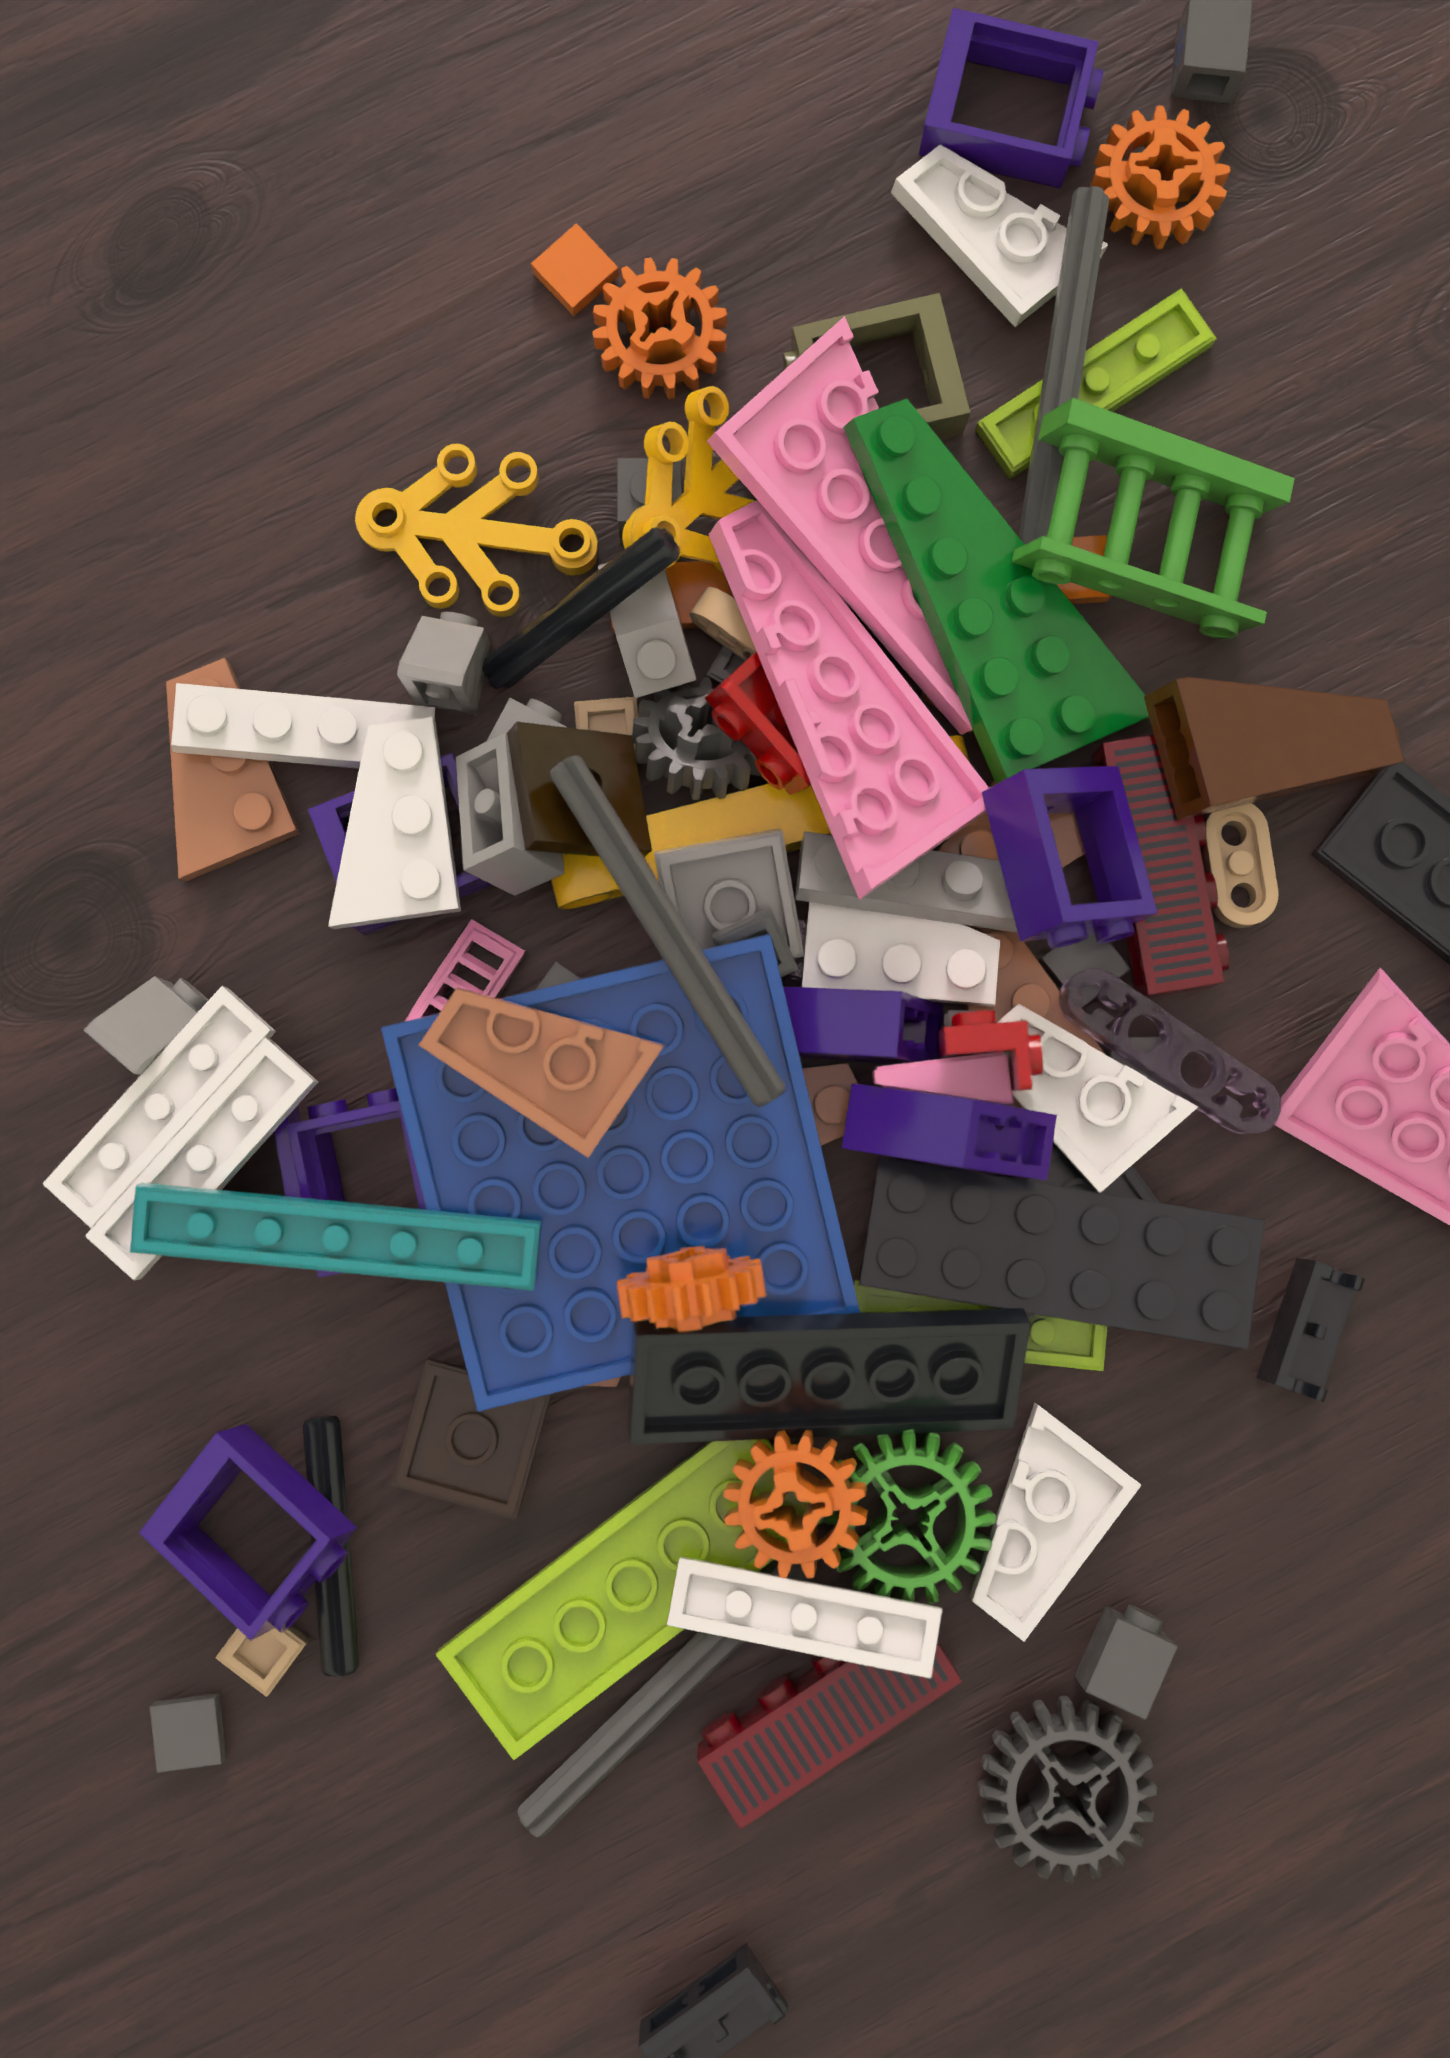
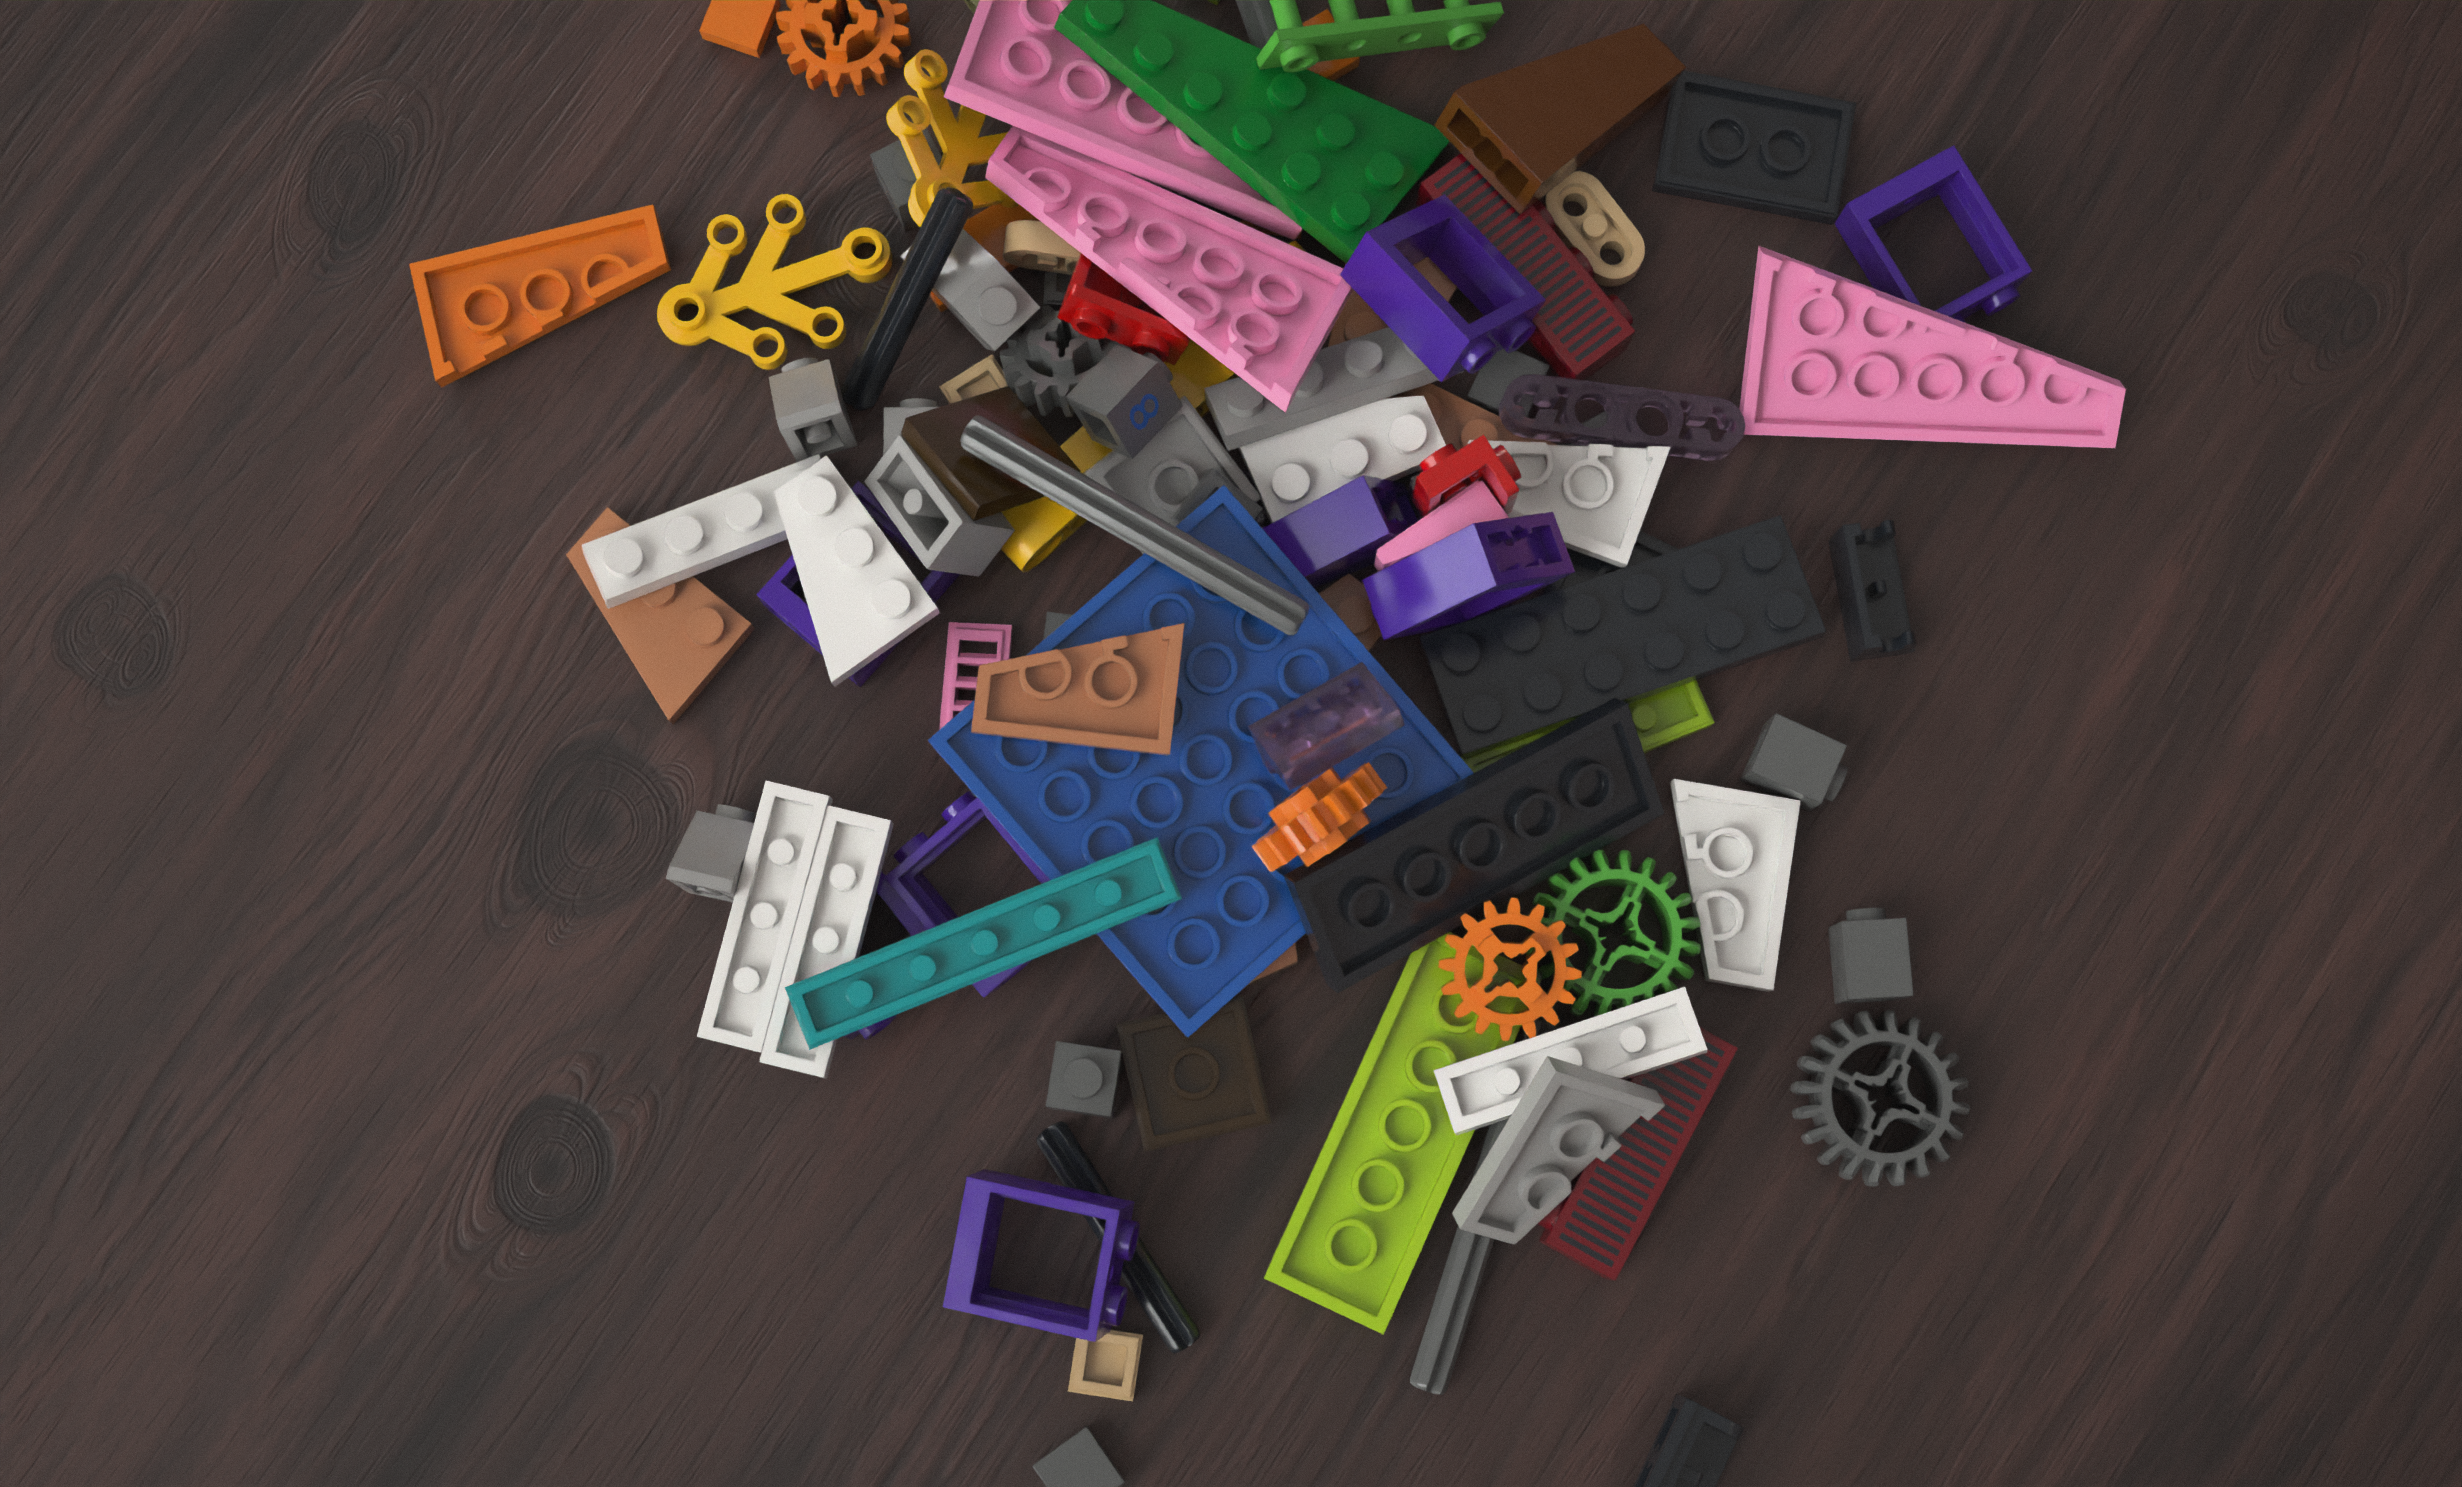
camera: 25 degrees left, 5 degrees down
(250, 419) = (521, 288): none -> orange wing
(370, 1395) = (1084, 1079): none -> dark grey brick
(725, 807) = (1125, 400): none -> dark grey brick
(741, 1208) = (1325, 726): none -> clear purple bracket
(744, 1679) = (1549, 1139): none -> light grey wing
(1155, 1448) = (1795, 763): none -> dark grey brick

